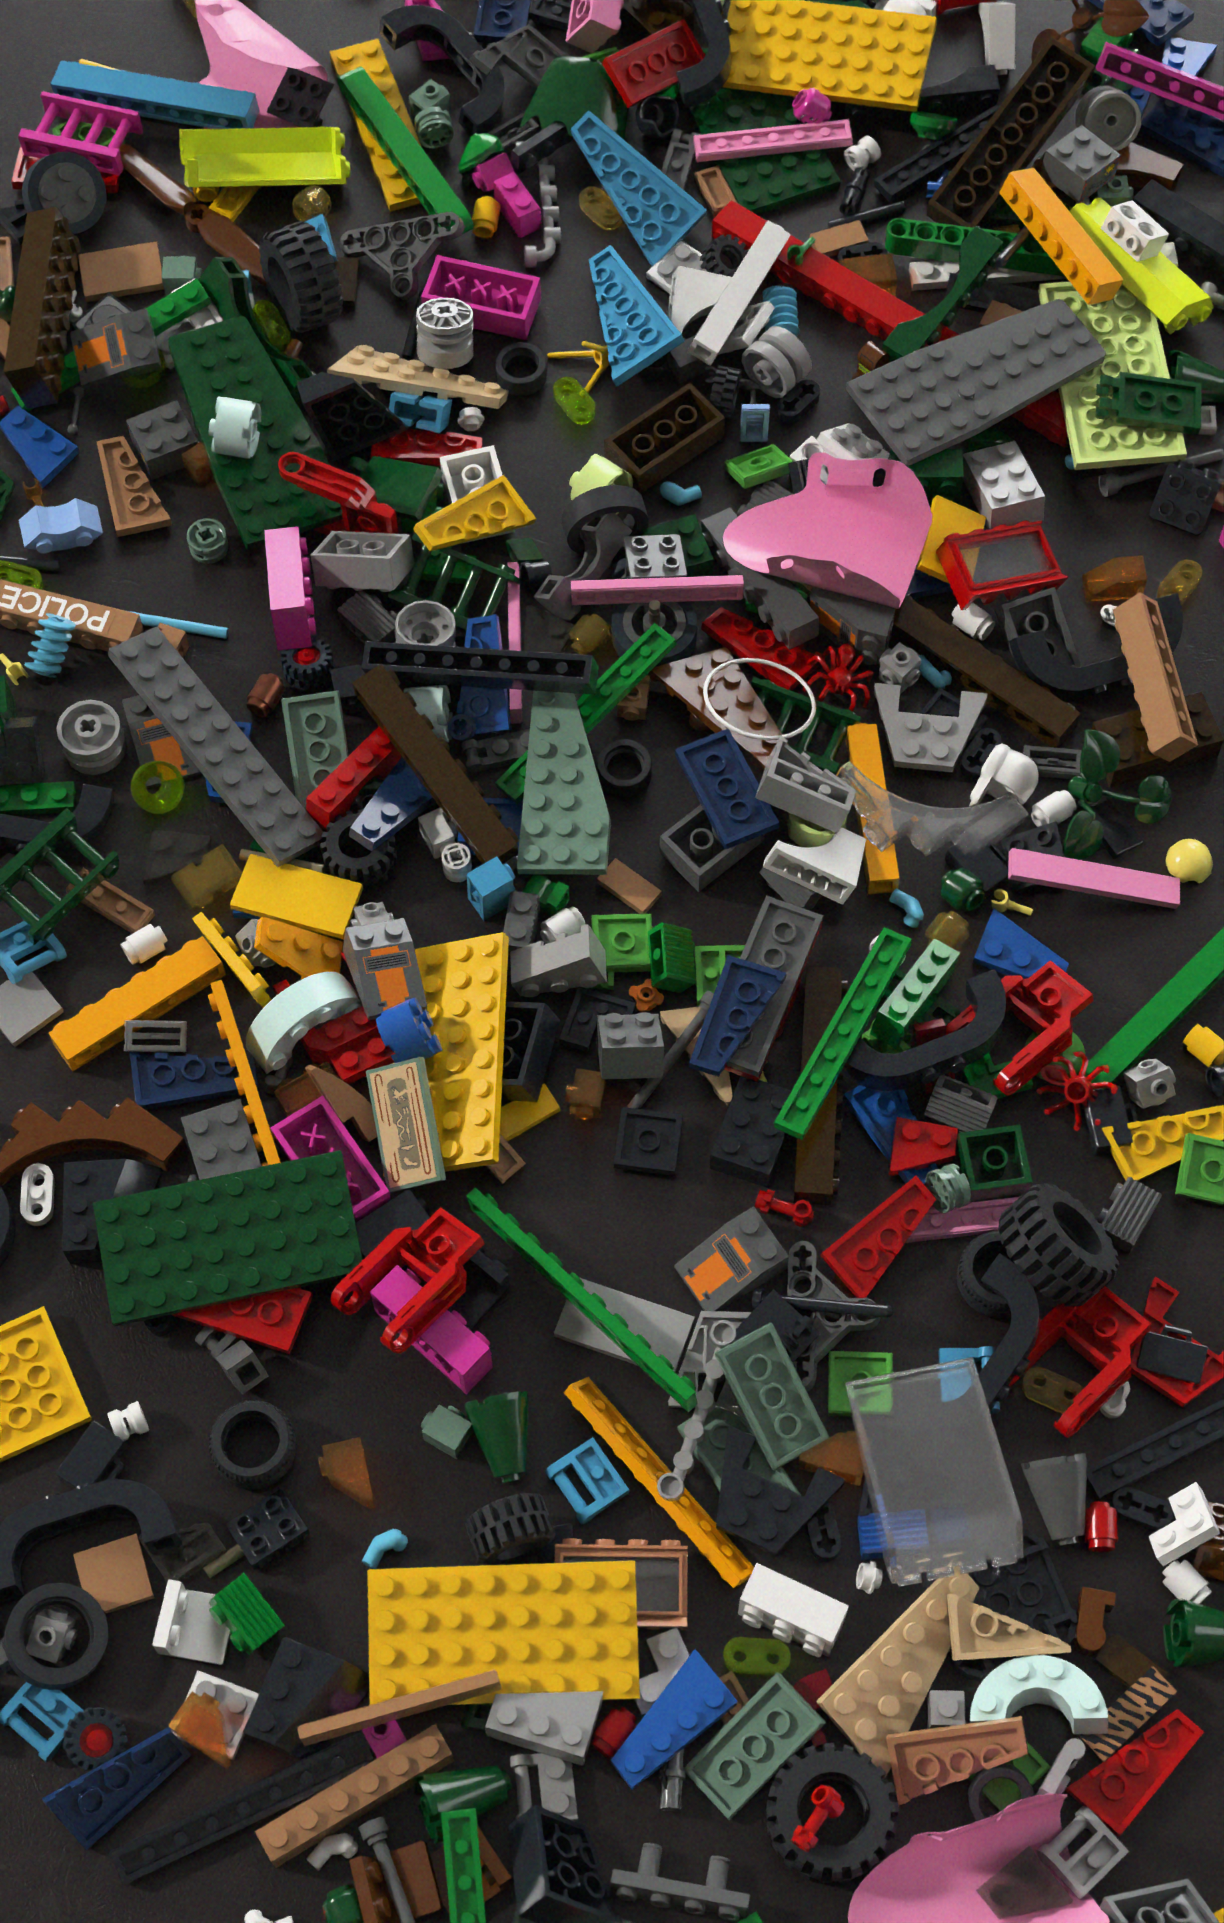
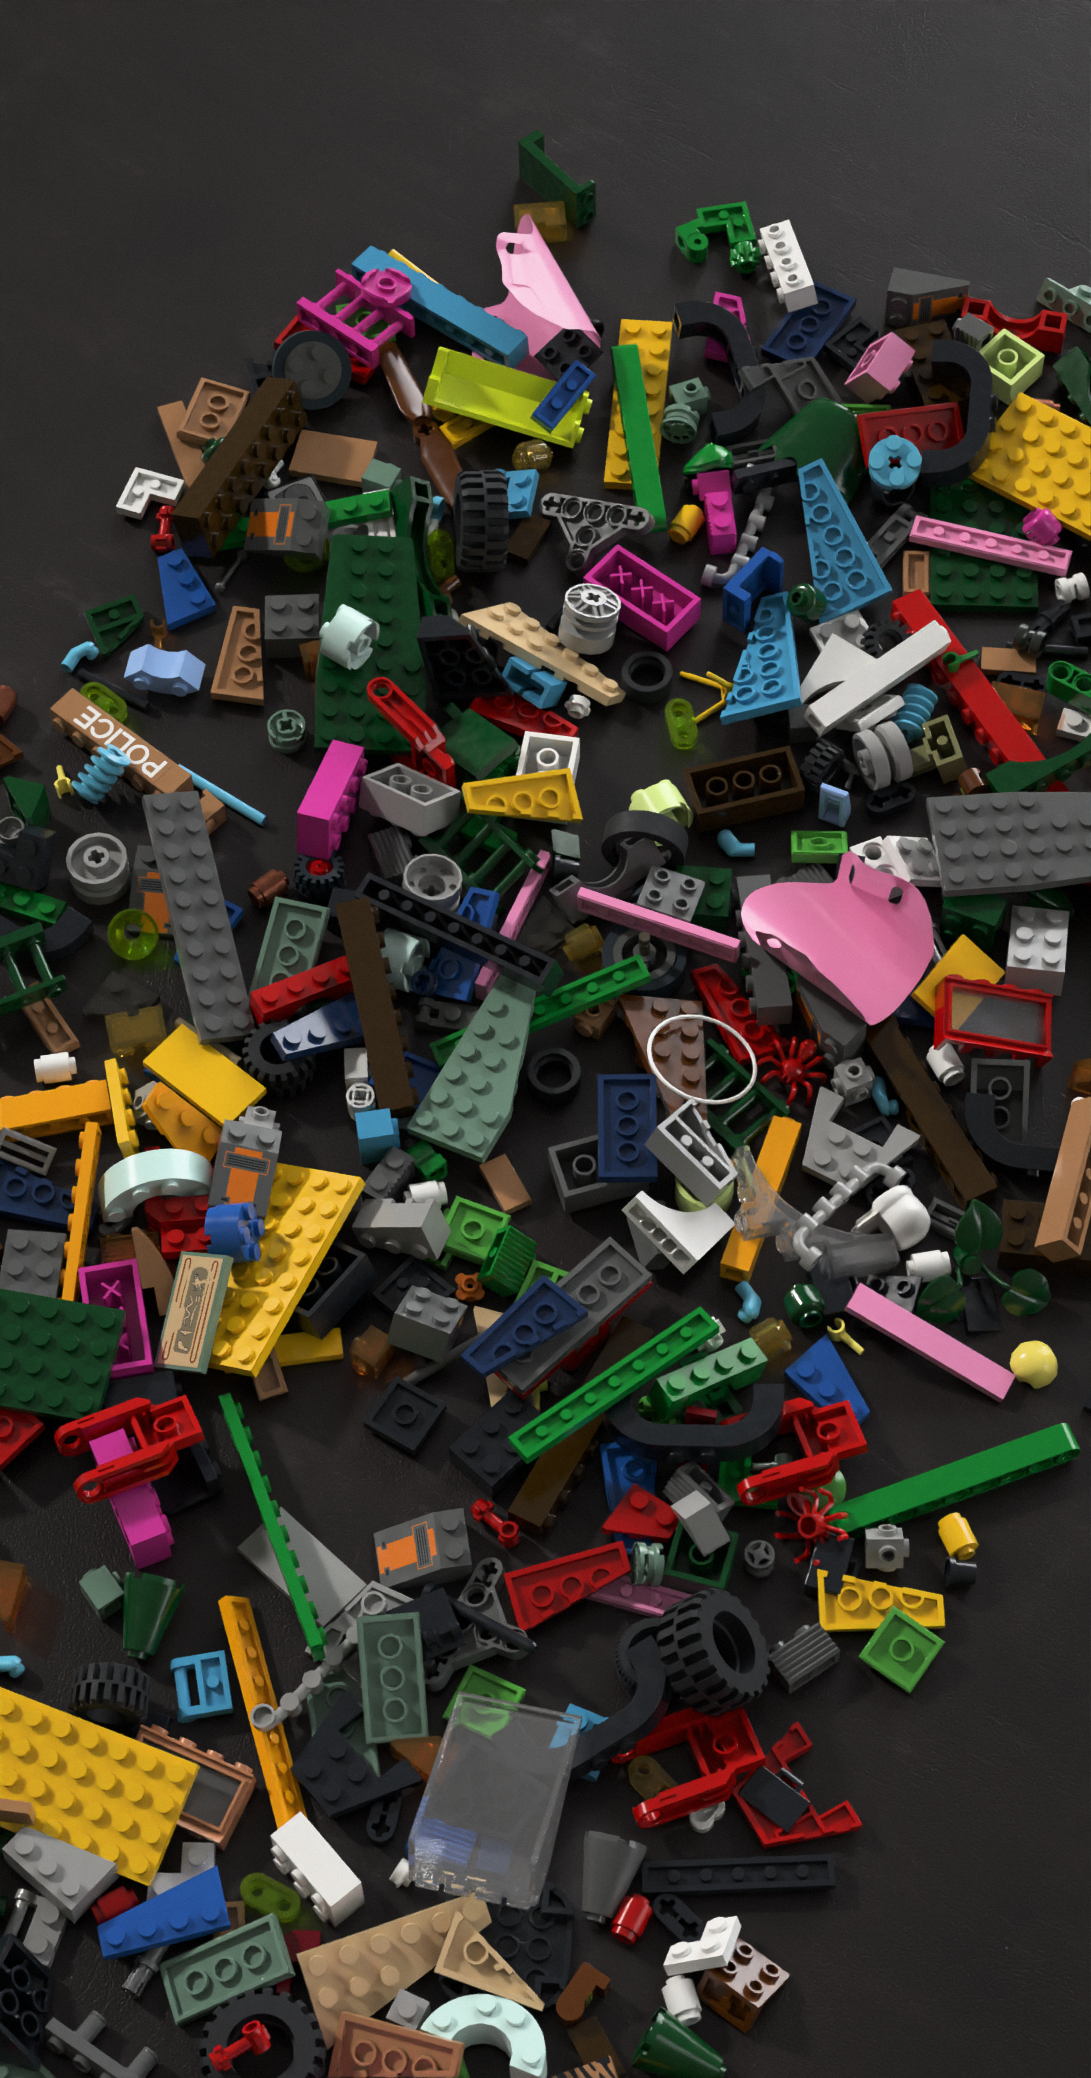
camera: 25 degrees right, 5 degrees down
(98, 93) = (386, 287): none -> dark pink tile
(315, 138) = (563, 396): none -> blue tile
(583, 236) = (760, 573): none -> blue panel
(596, 204) = (797, 551): clear yellow plate -> none
(636, 248) = (806, 602): none -> dark green head
(663, 80) = (894, 448): none -> medium azure plate
(826, 338) = (939, 751): none -> olive brick
(846, 212) = (1030, 640): none -> pearl dark grey wheel
(945, 791) = (840, 1195): none -> light grey bar
(982, 1127) = (701, 1522): none -> light grey slope
(1015, 1044) = (780, 1459): none -> sand green hand
(1046, 1135) = (759, 1551): none -> dark grey wheel

